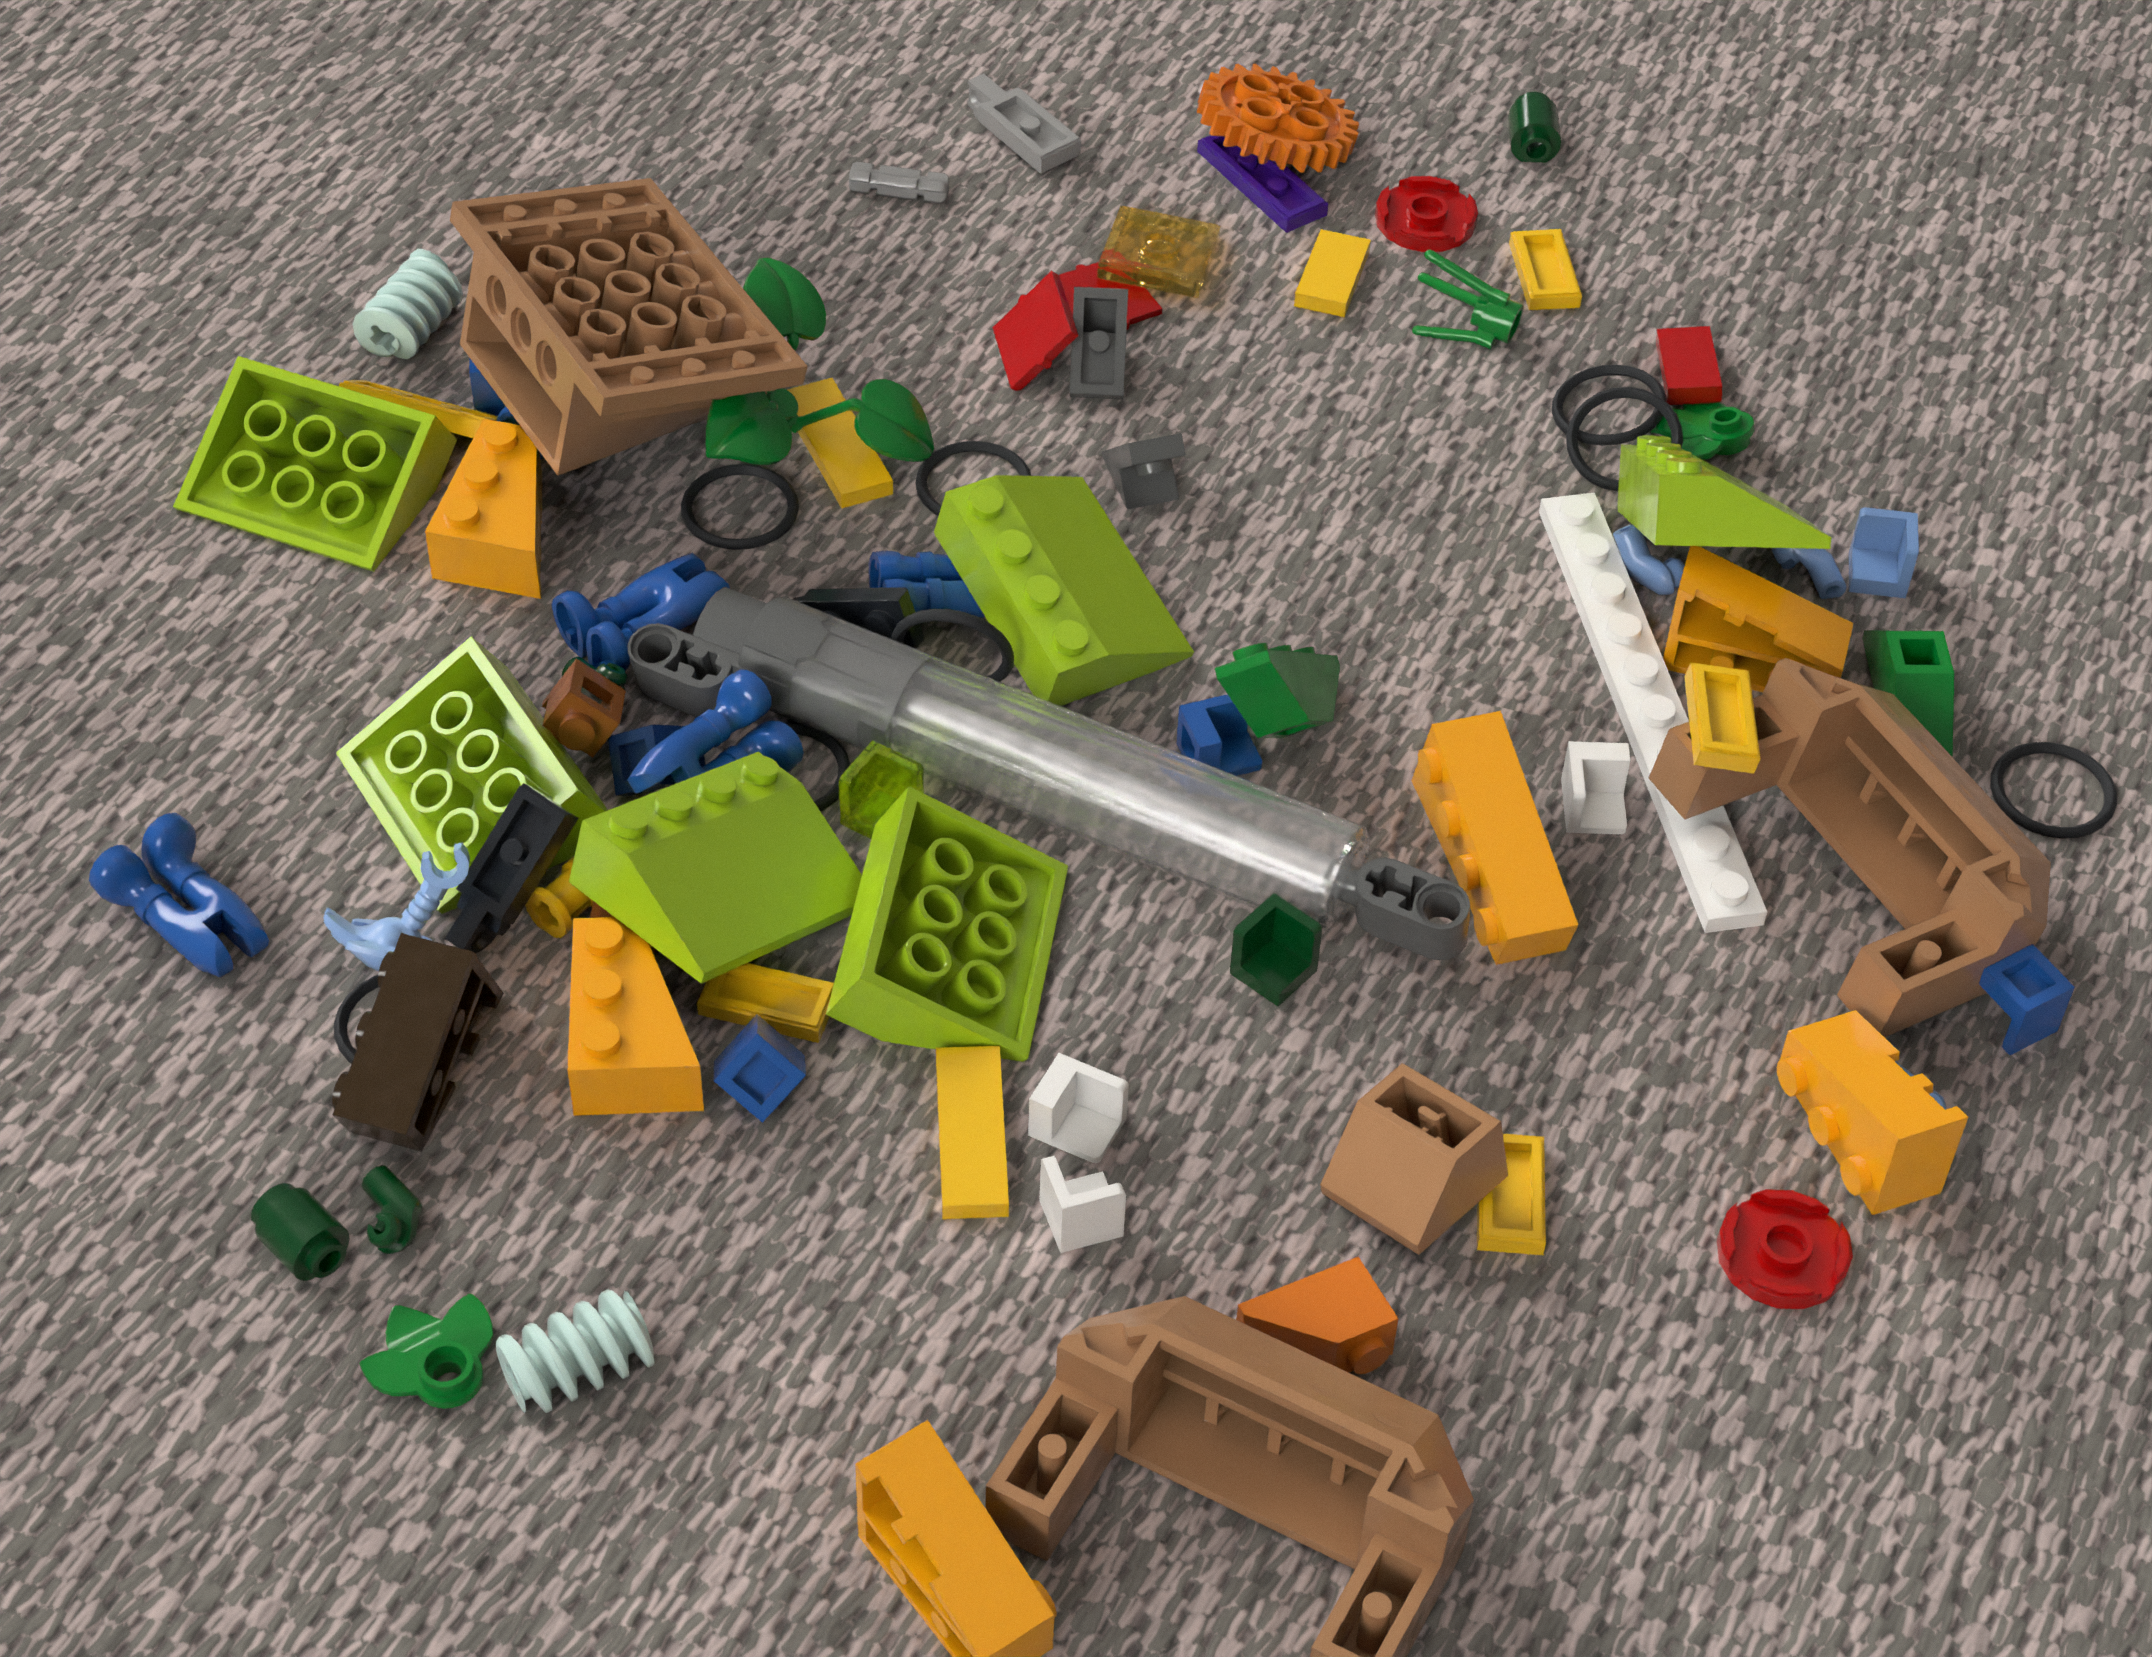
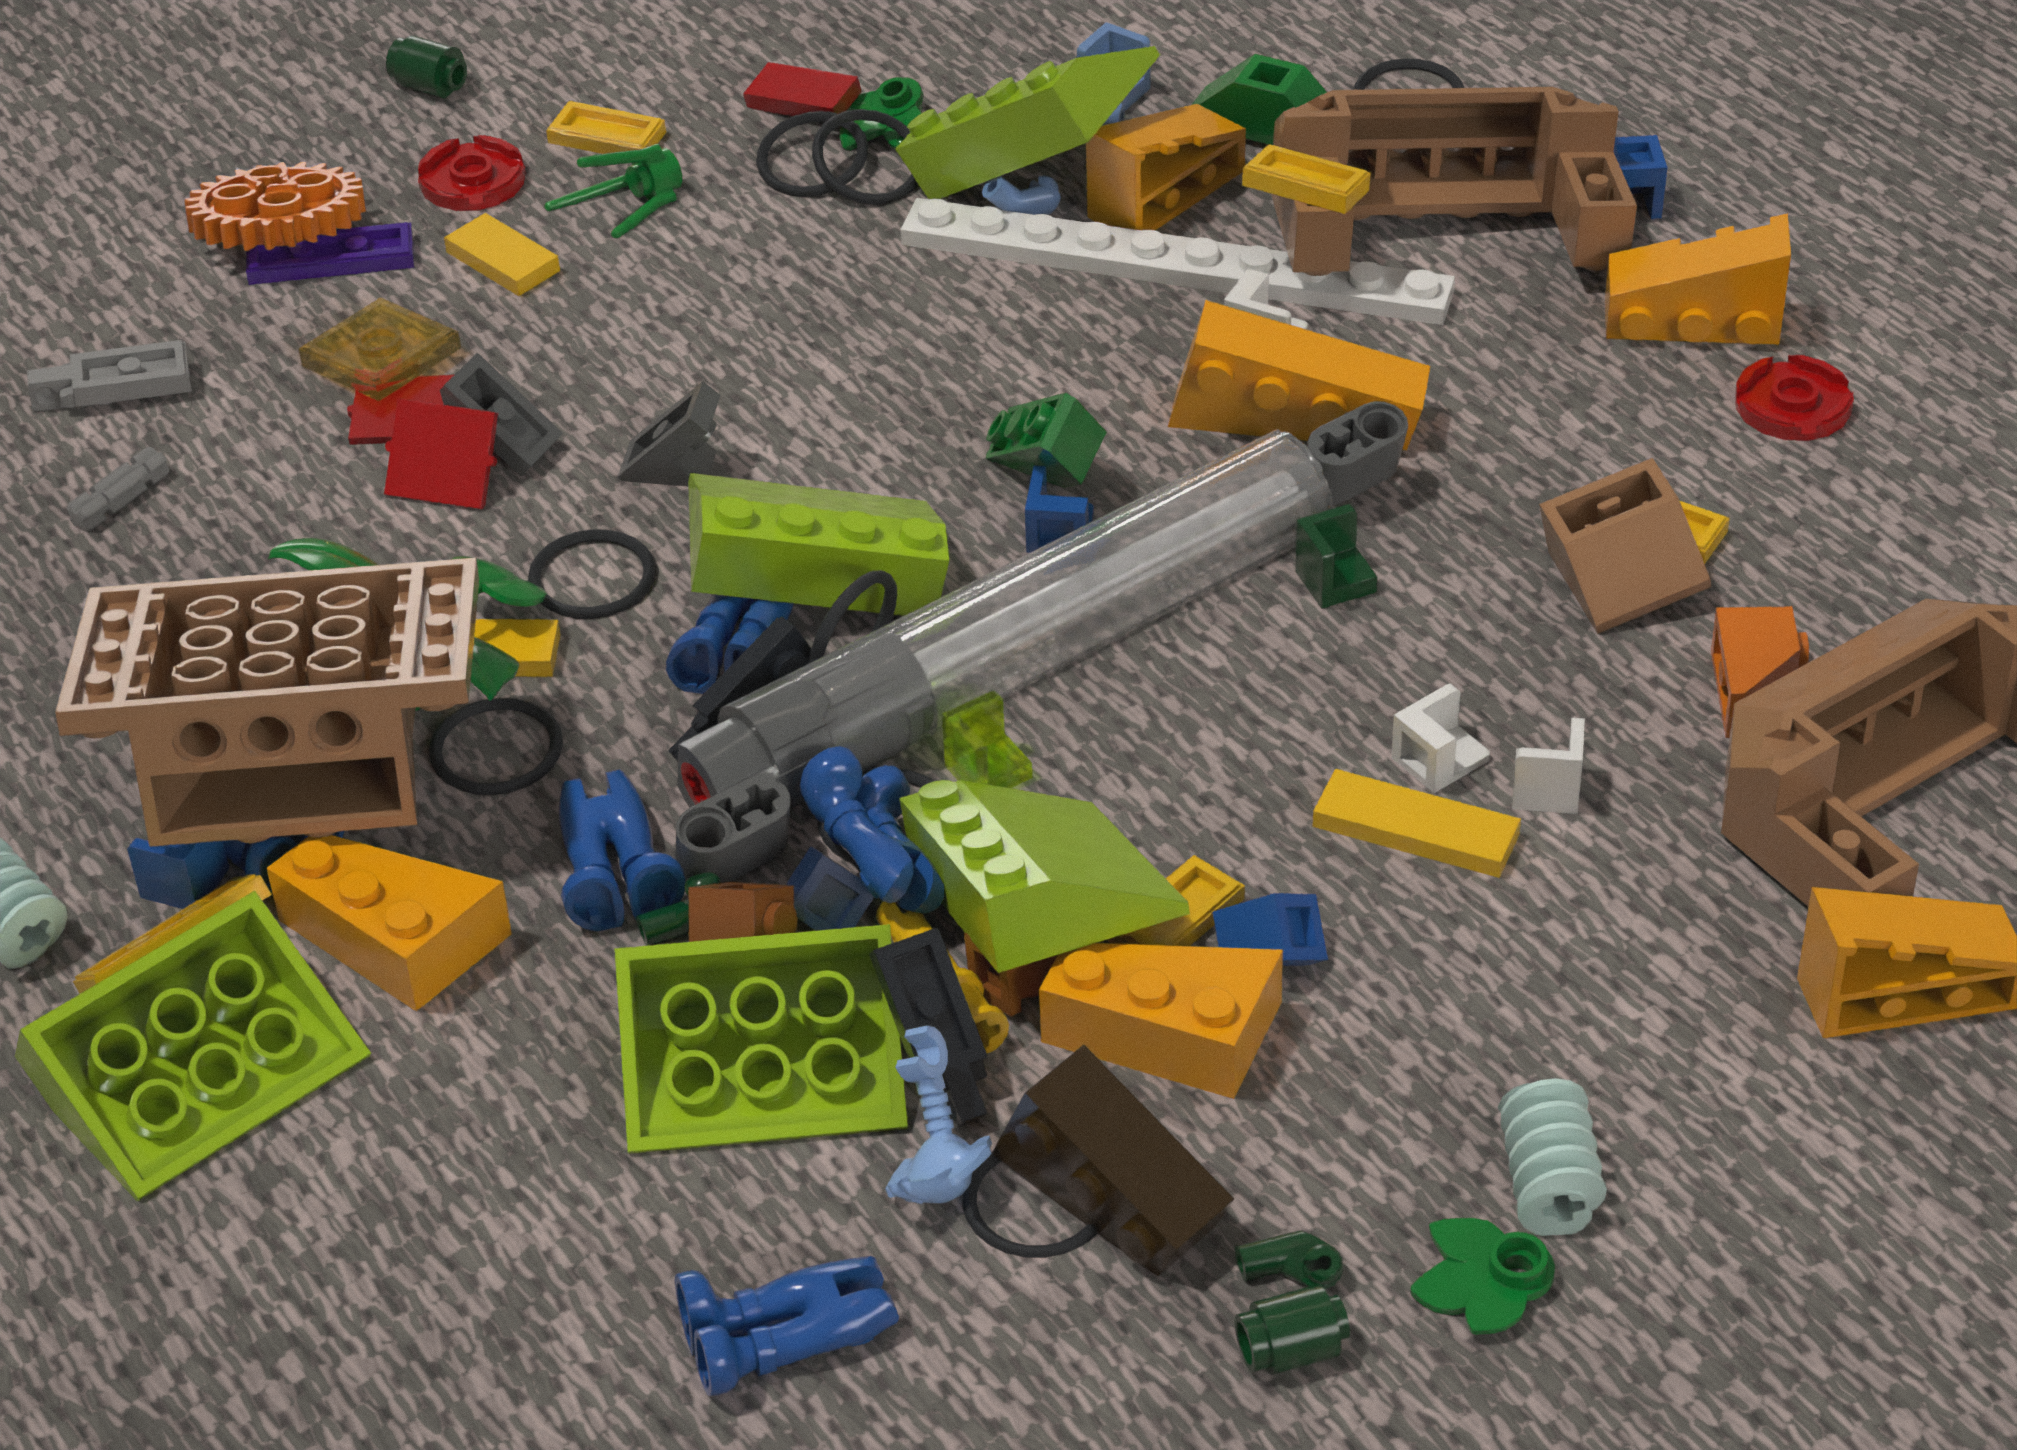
camera: 60 degrees left, 5 degrees down
(948, 933) = (1177, 762): lime slope -> none

